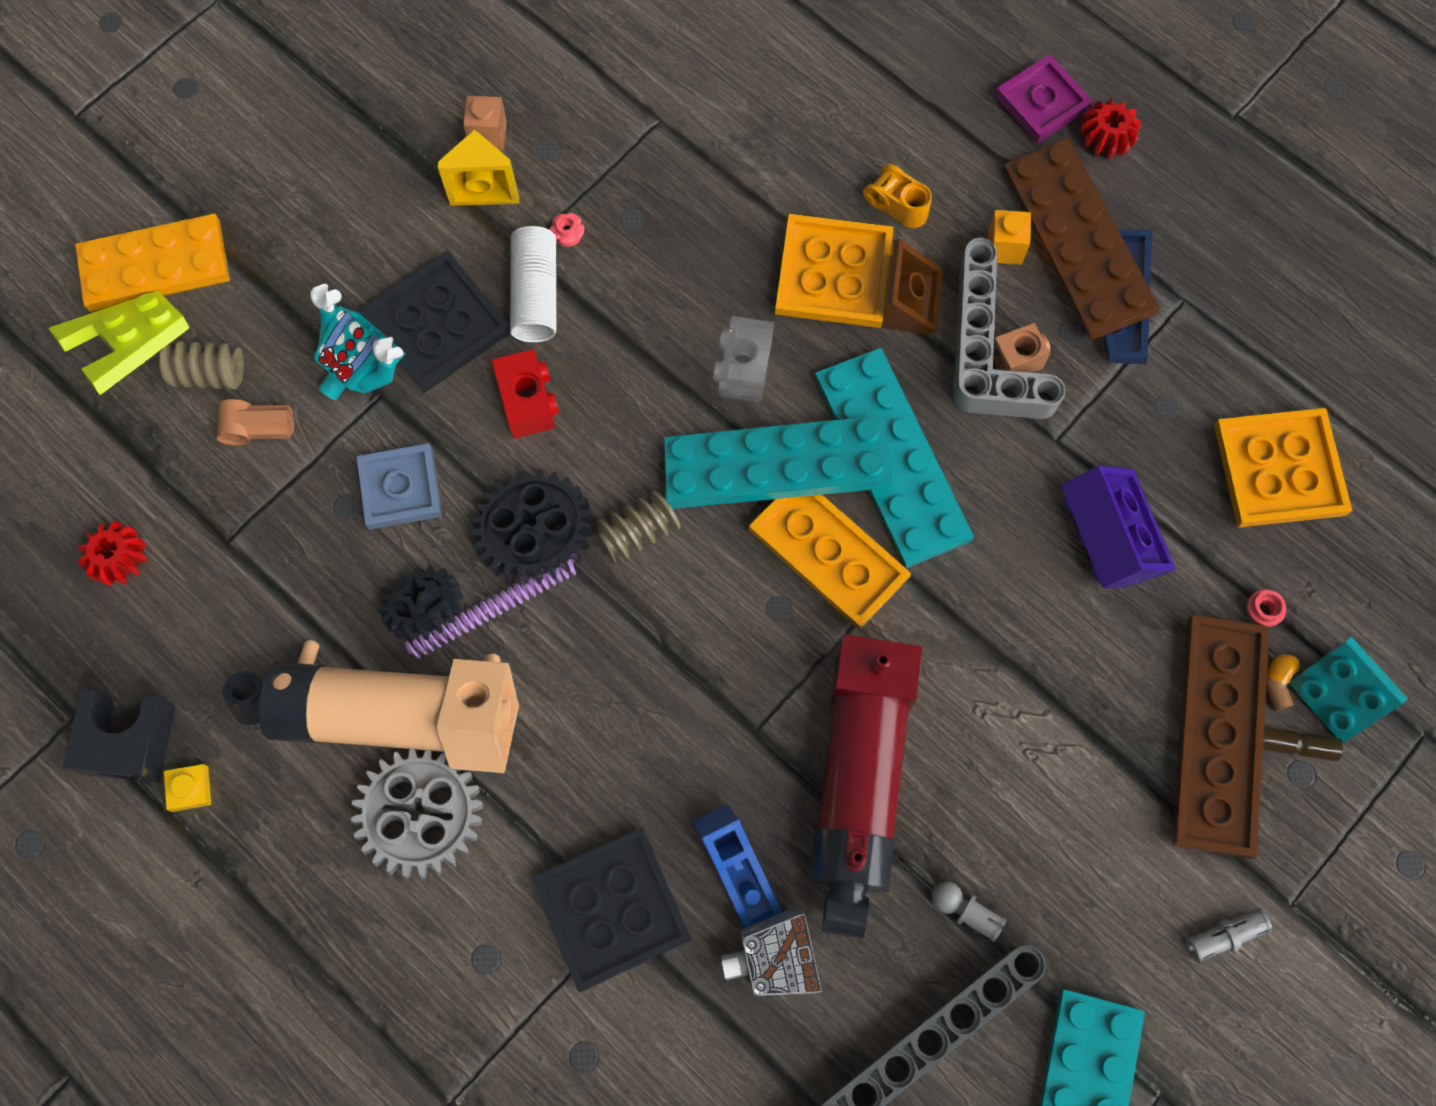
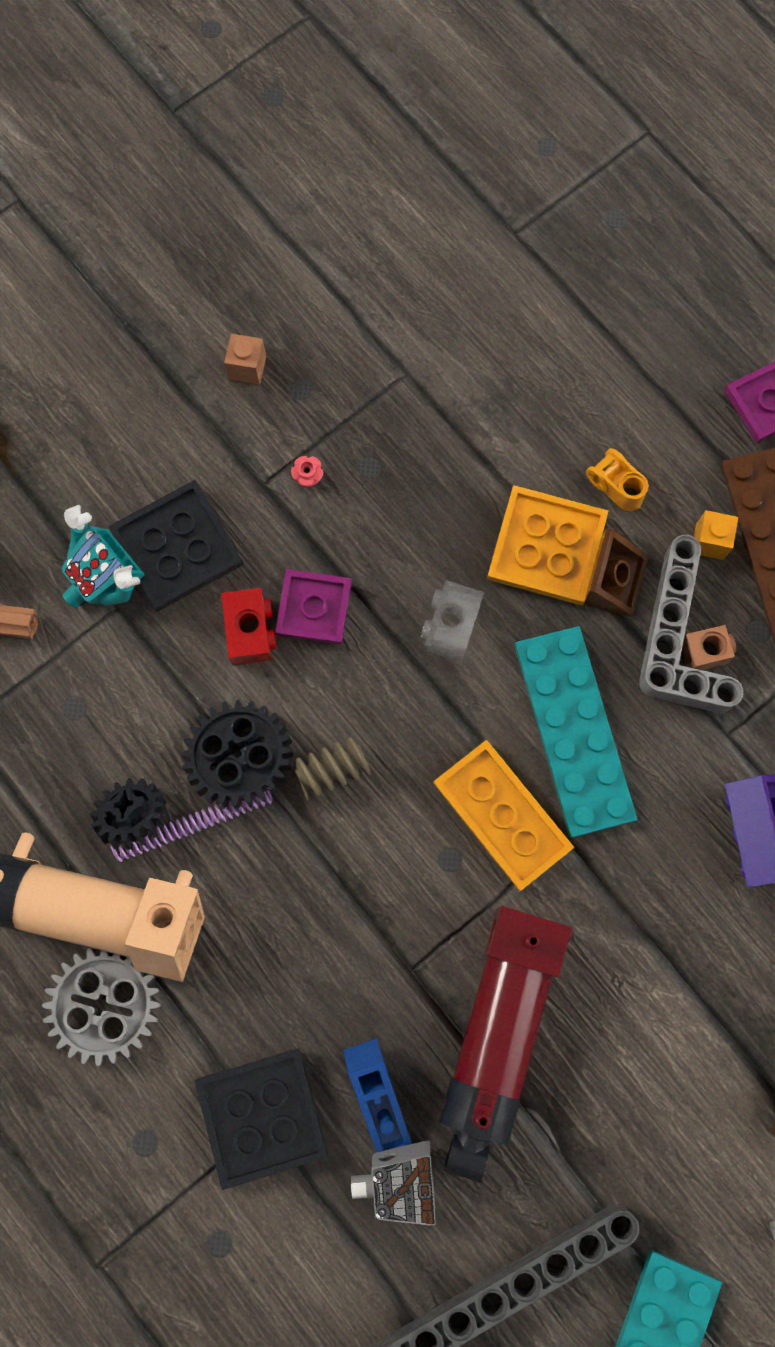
camera: 10 degrees right, 5 degrees up
(399, 486) = (123, 698): sand blue plate -> none
(477, 174) = (231, 410): yellow slope -> none
(533, 284) = (266, 526): white piece -> none
(593, 365) = (313, 607): none -> magenta plate
(777, 462) = (468, 725): teal plate -> none
(949, 899) = (562, 1154): light grey pin -> none

